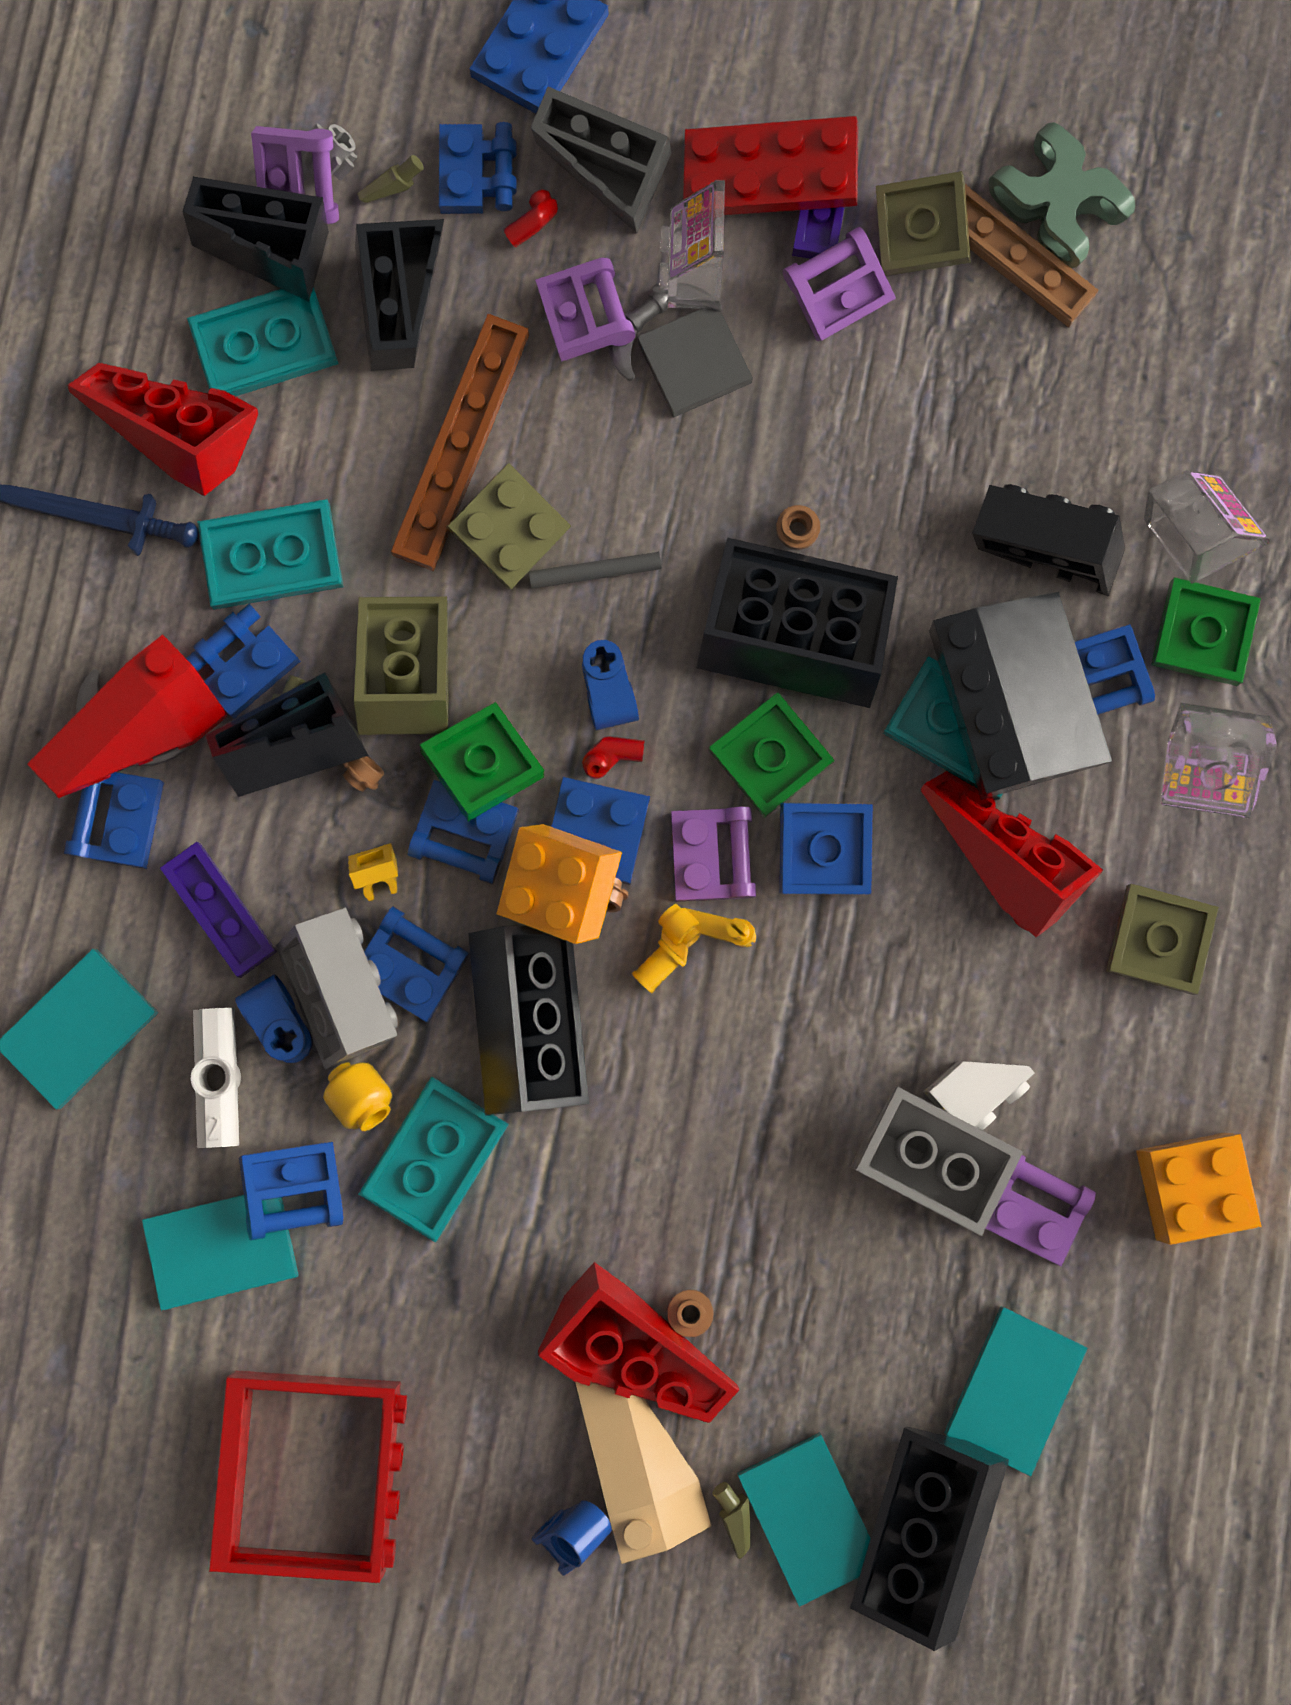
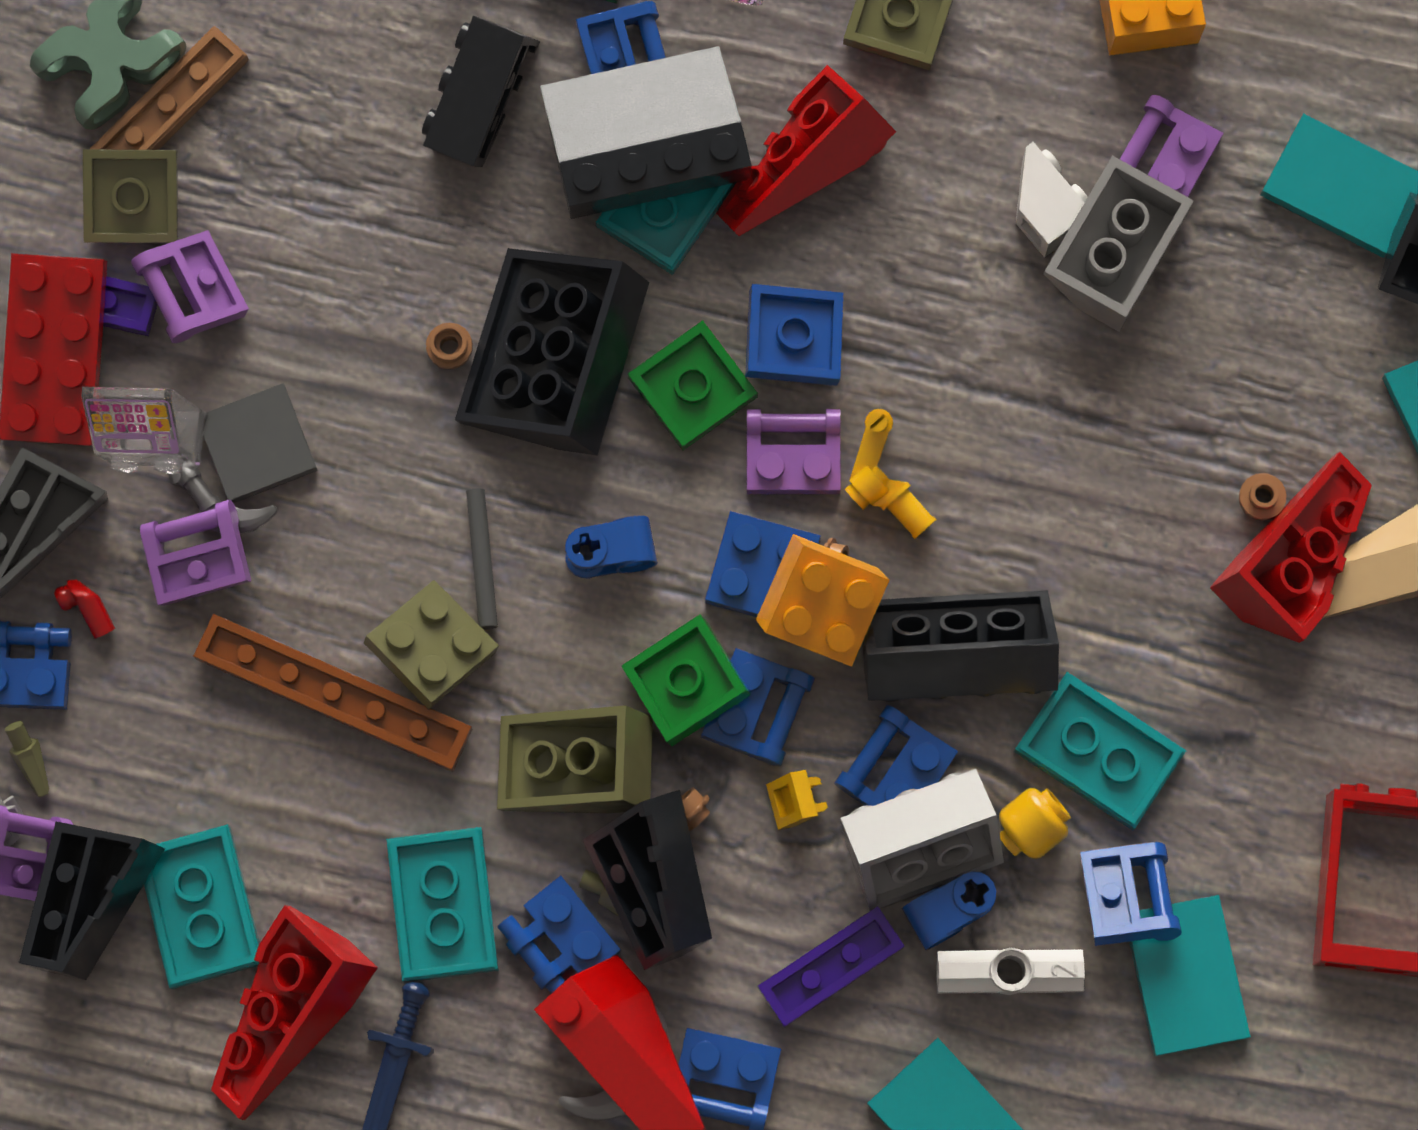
camera: 85 degrees left, 5 degrees down
(395, 284) = (160, 752): black wedge -> none
(609, 752) = (680, 552): red arm -> none

